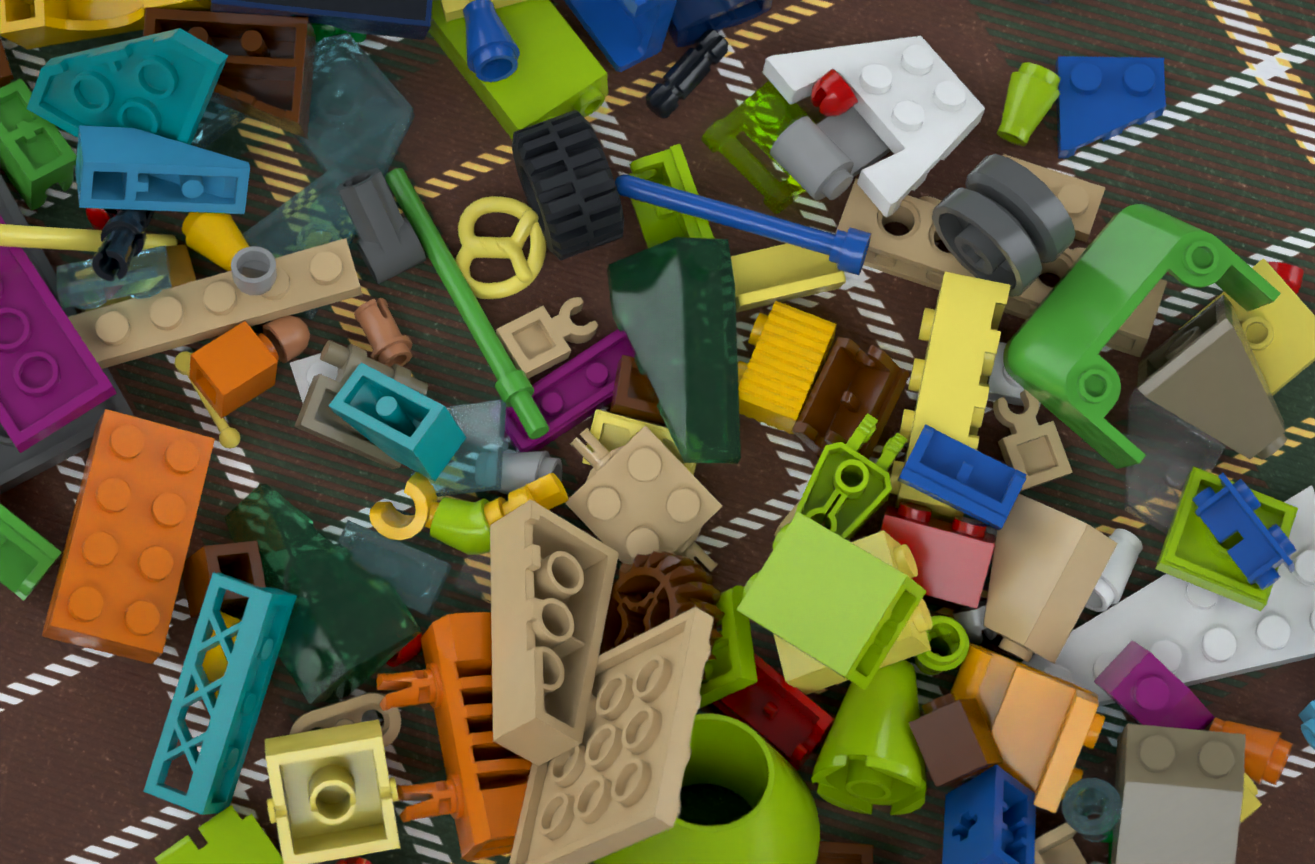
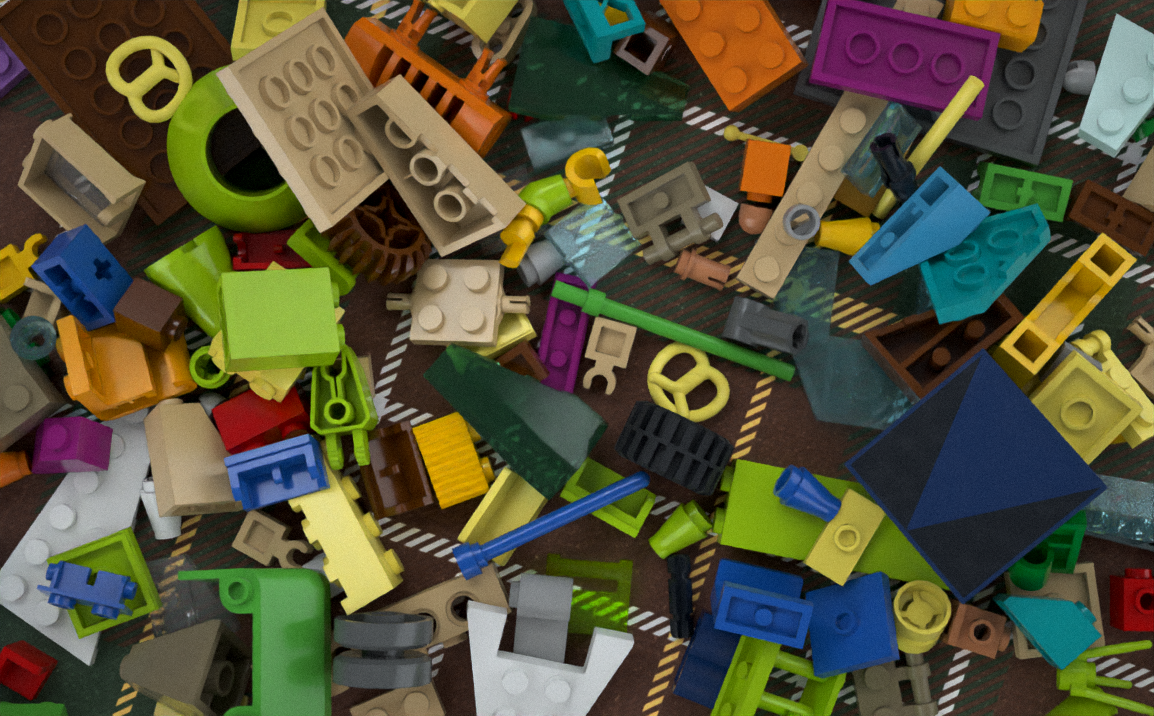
camera: 140 degrees right, 15 degrees up
(399, 421) = (636, 215): teal slope -> none
(631, 125) = (684, 527): none -> lime cone
(832, 95) = (573, 657): red hinge -> none

